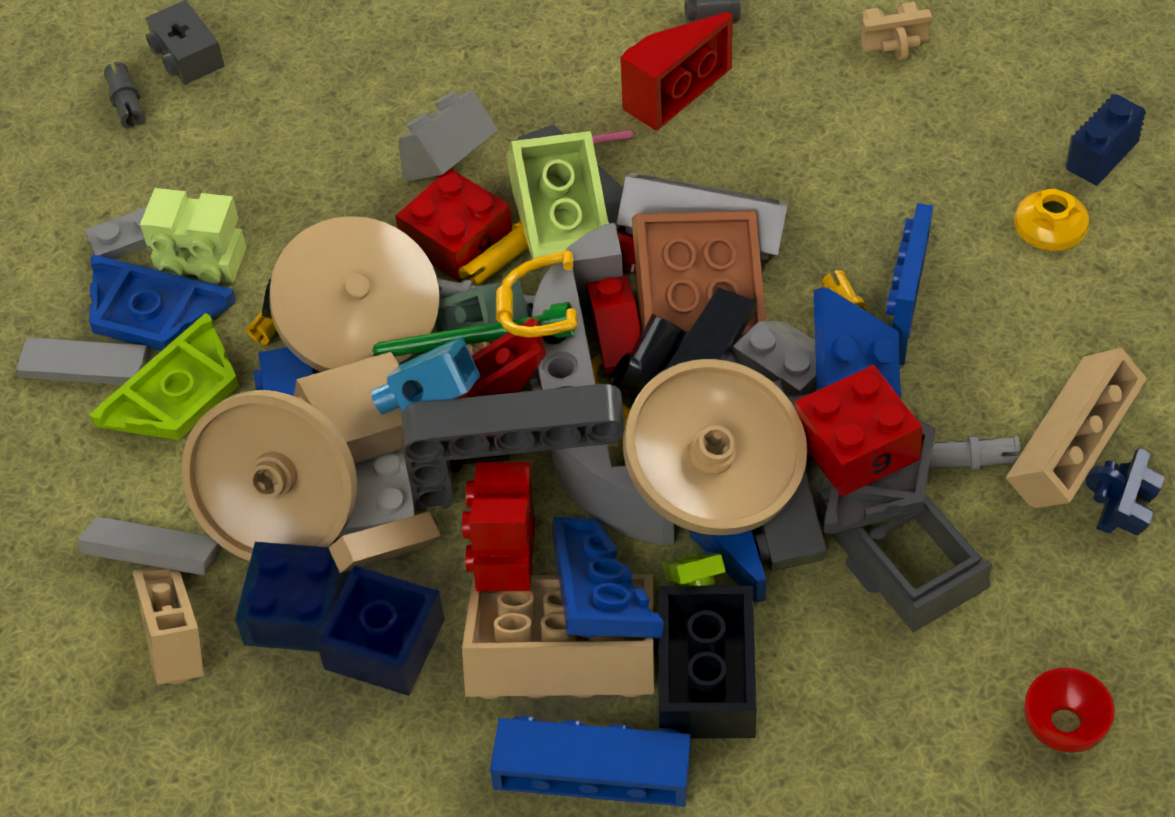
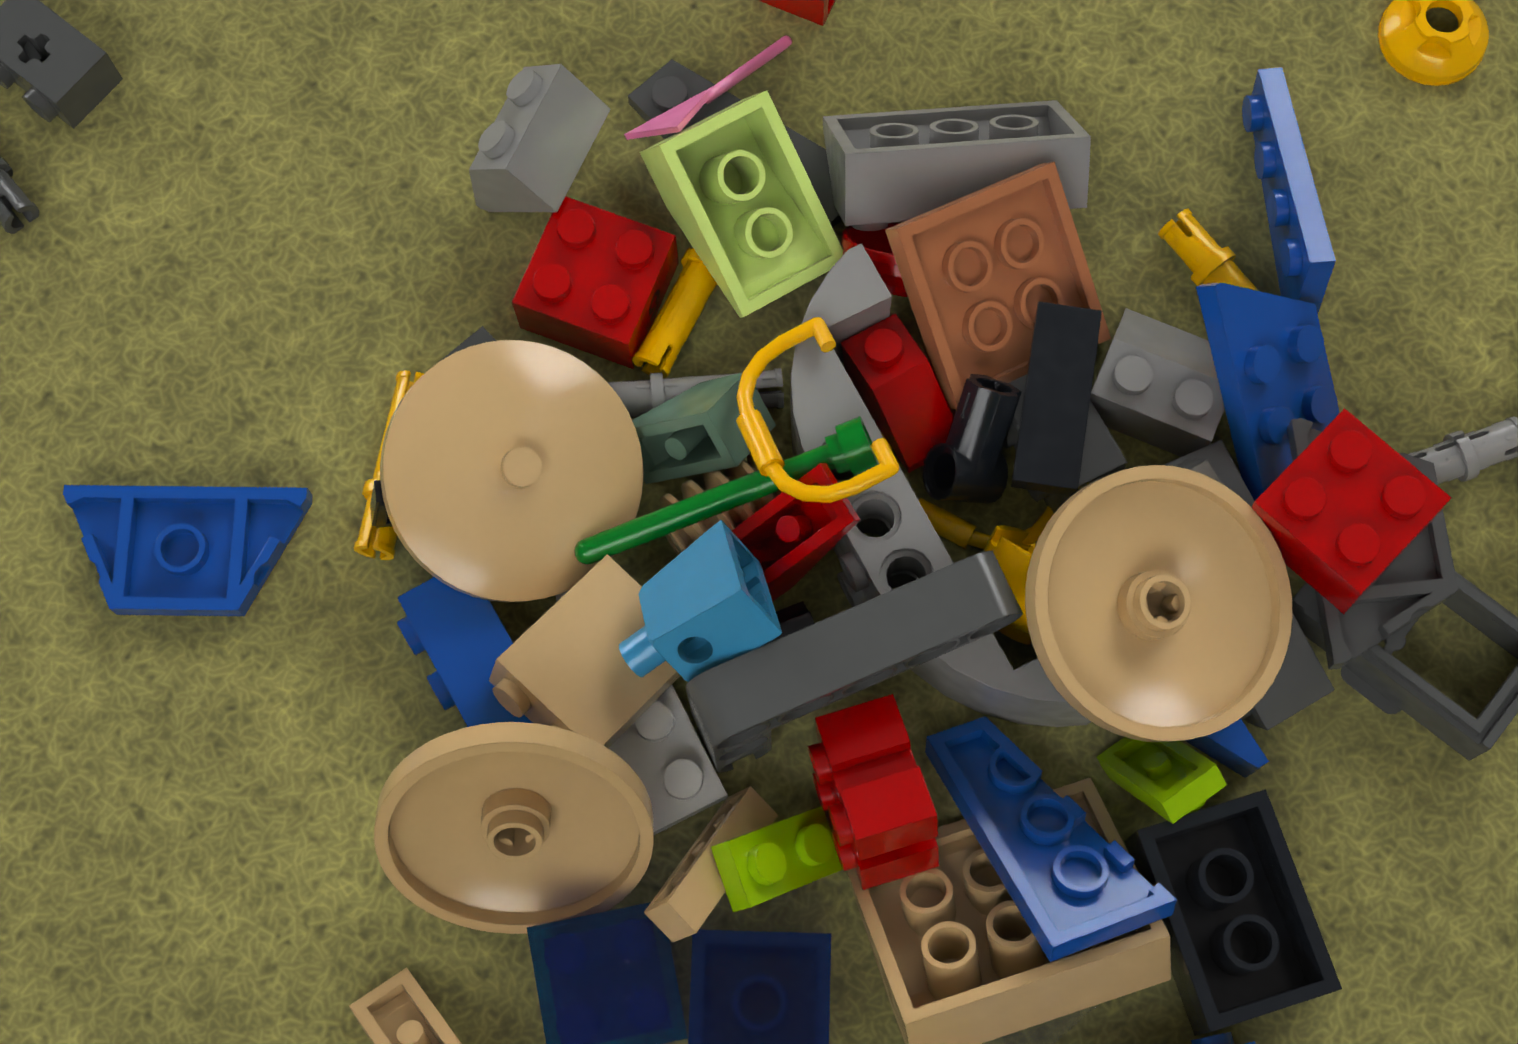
camera: 20 degrees left, 20 degrees up
(80, 360) = (122, 670): light grey tile -> none
(117, 235) = (99, 423): light grey plate -> none
(149, 545) = (356, 958): light grey tile -> none
(173, 387) = (283, 677): lime wing -> none
(194, 235) = (213, 420): yellowish green brick -> none
(426, 552) = (776, 859): none -> lime plate

